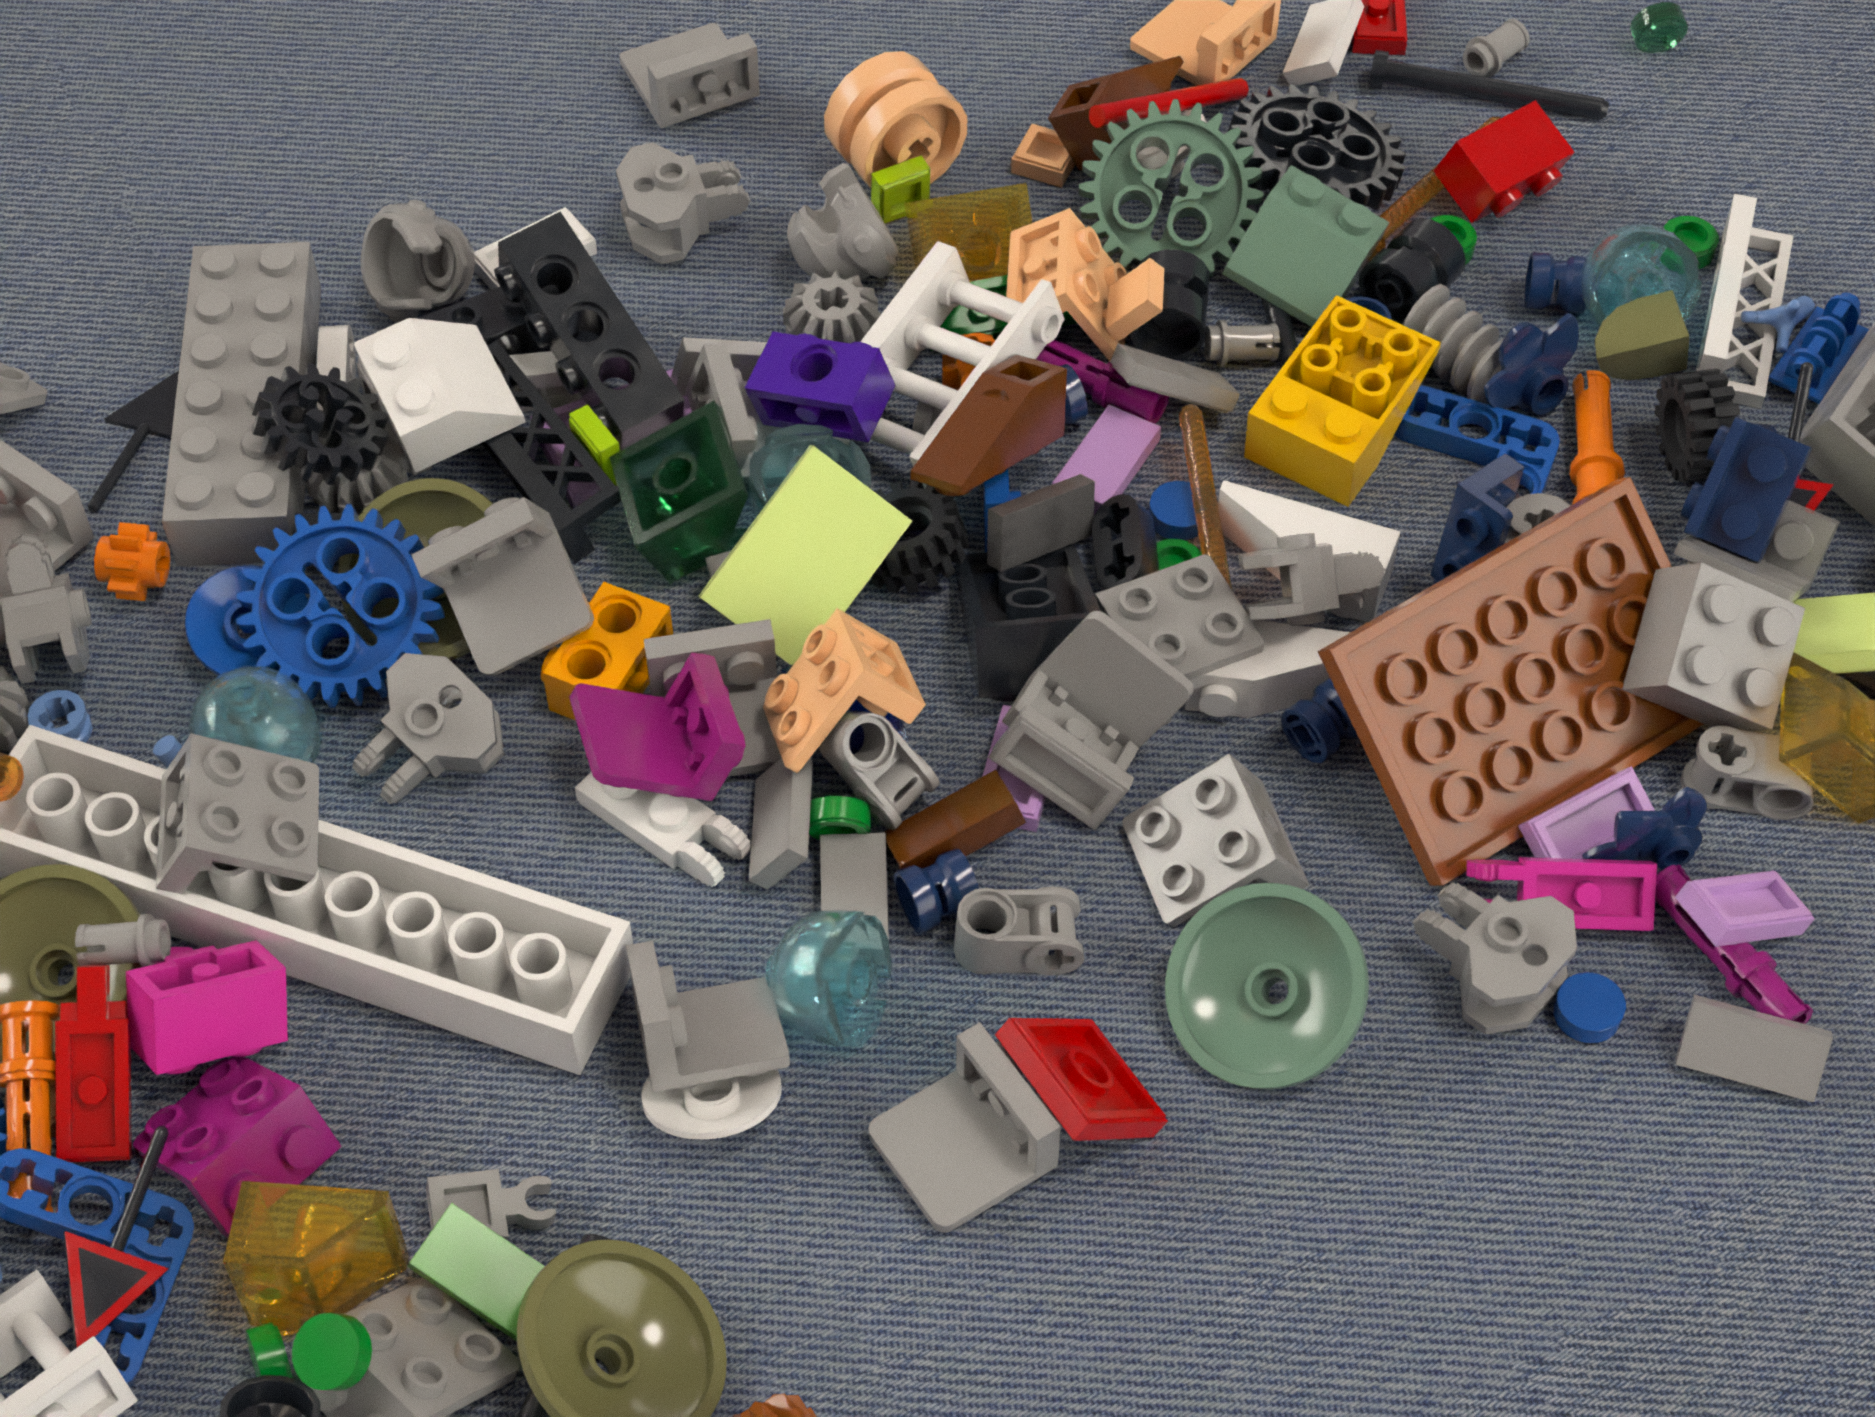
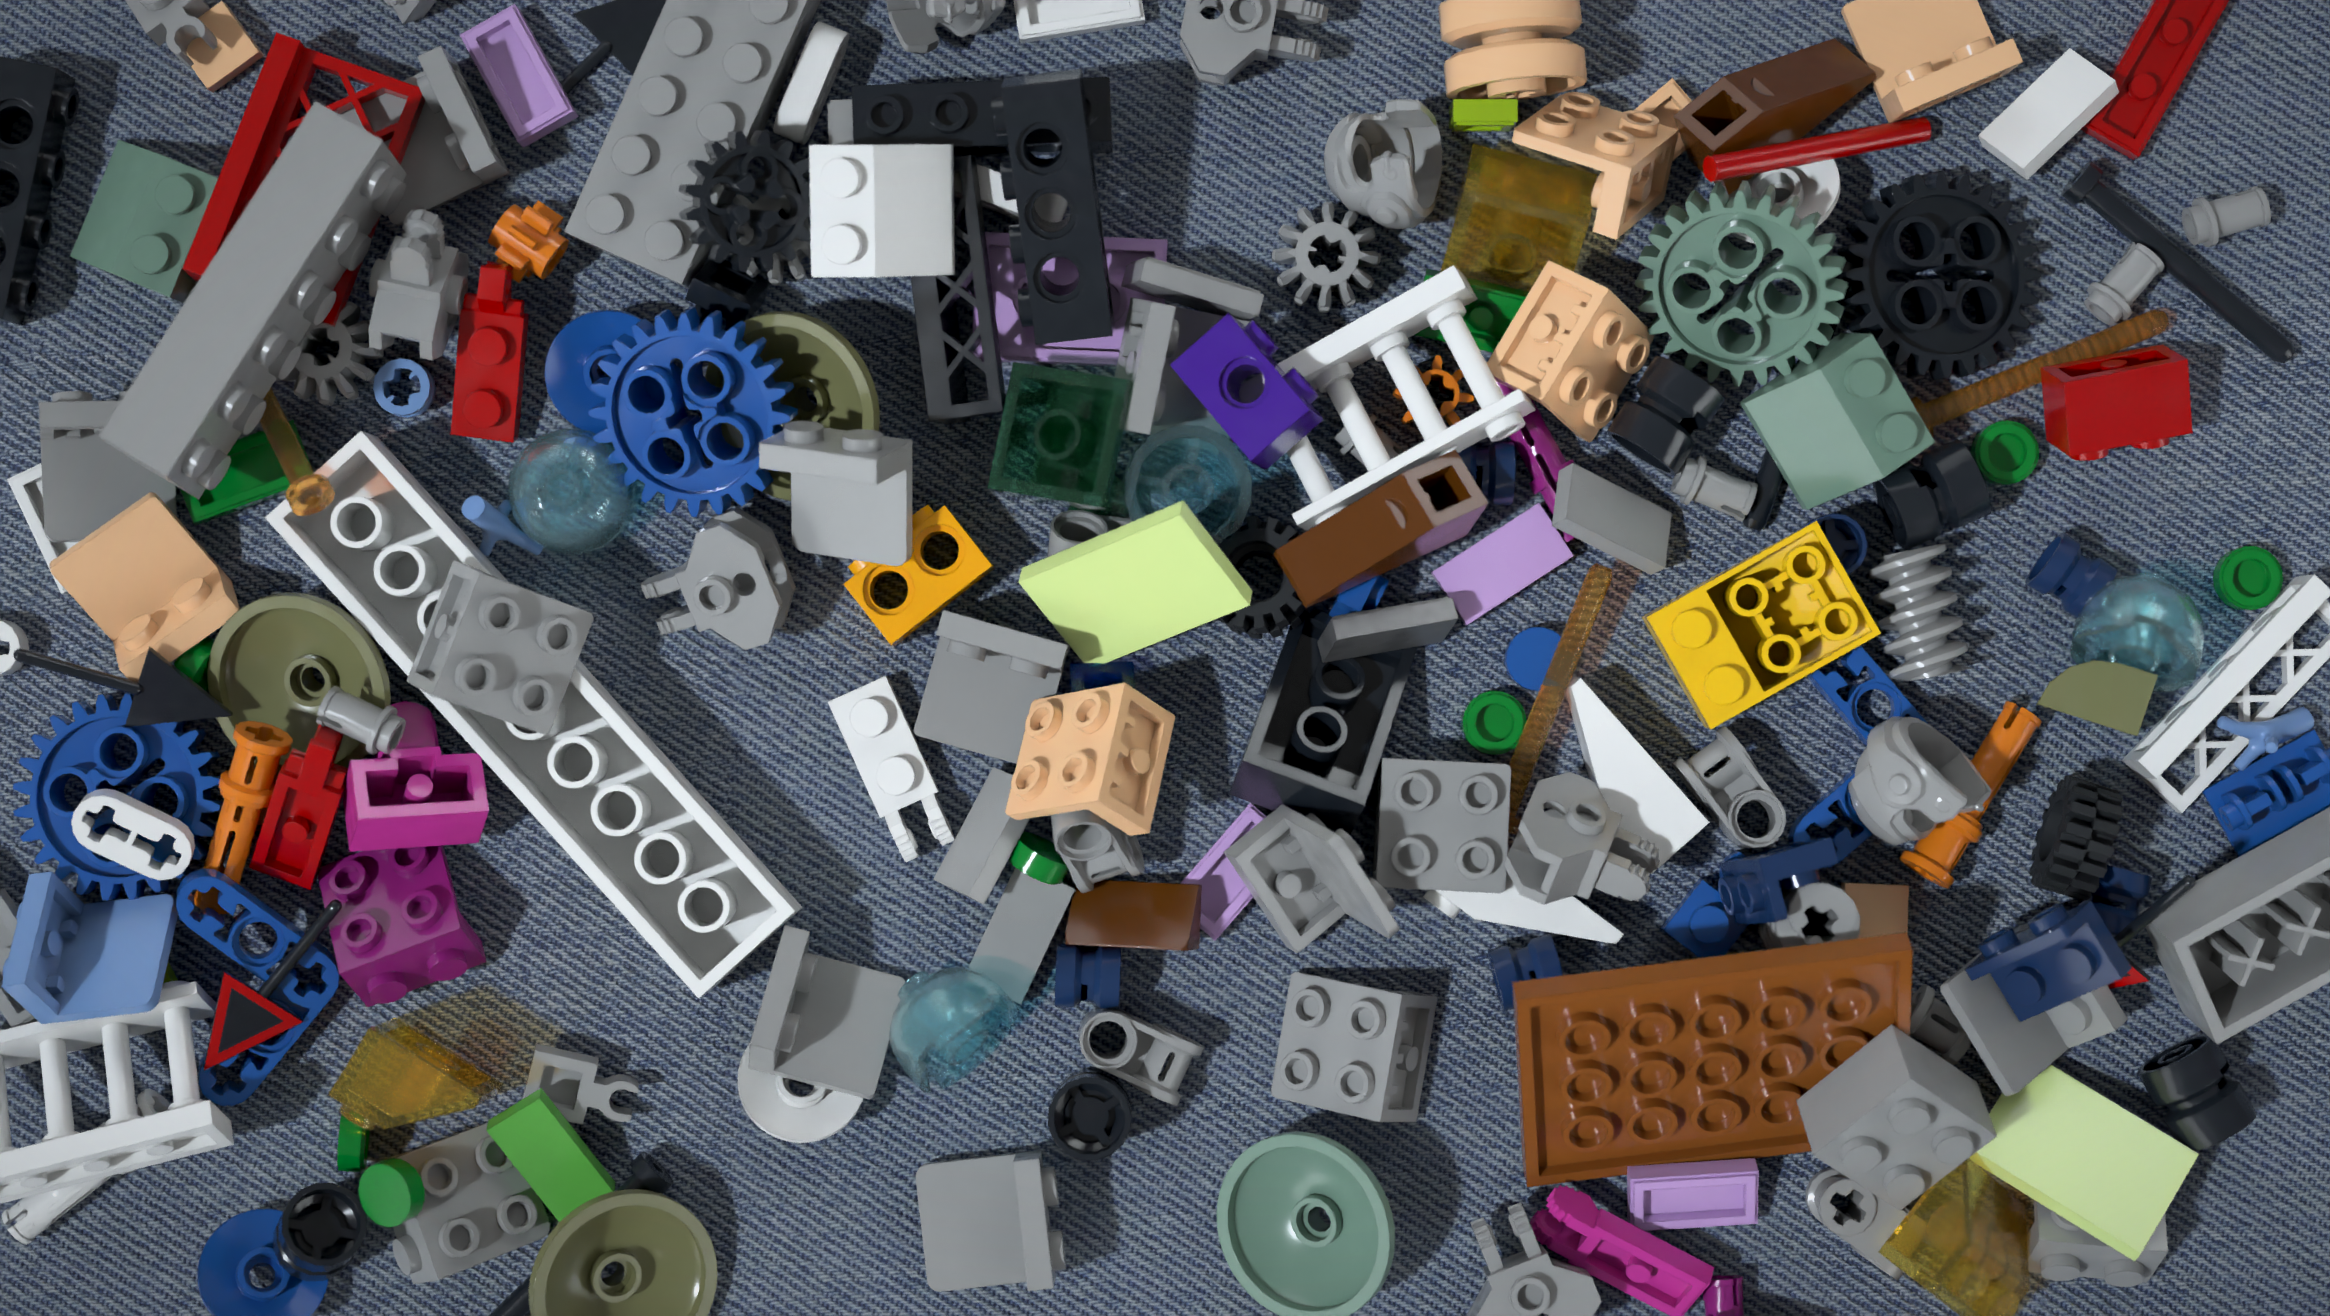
camera: 30 degrees right, 35 degrees up
(84, 465) = (519, 75): none -> lavender tile
(133, 659) = (490, 359): none -> red hinge
(594, 438) = (1010, 331): lime tile -> none
(659, 743) = (911, 715): magenta bracket -> none
(1004, 979) = (1090, 1114): none -> black wheel
(1016, 140) = (1624, 145): none -> light nougat bracket
(1061, 767) = (1253, 919): light grey tile -> none
(1081, 1078) = (1105, 1231): red tile -> none
(1135, 298) = (1619, 419): light nougat tile -> none
(1137, 544) = (1455, 688): black beam -> none
(1408, 509) = (1730, 788): none -> light grey piece
(1454, 117) = (2123, 284): none -> light grey pin
(1533, 366) = (1965, 688): dark blue plate -> none
(1539, 419) = (1912, 781): none -> light grey helmet
(1657, 836) = (1737, 1250): dark blue plate -> none

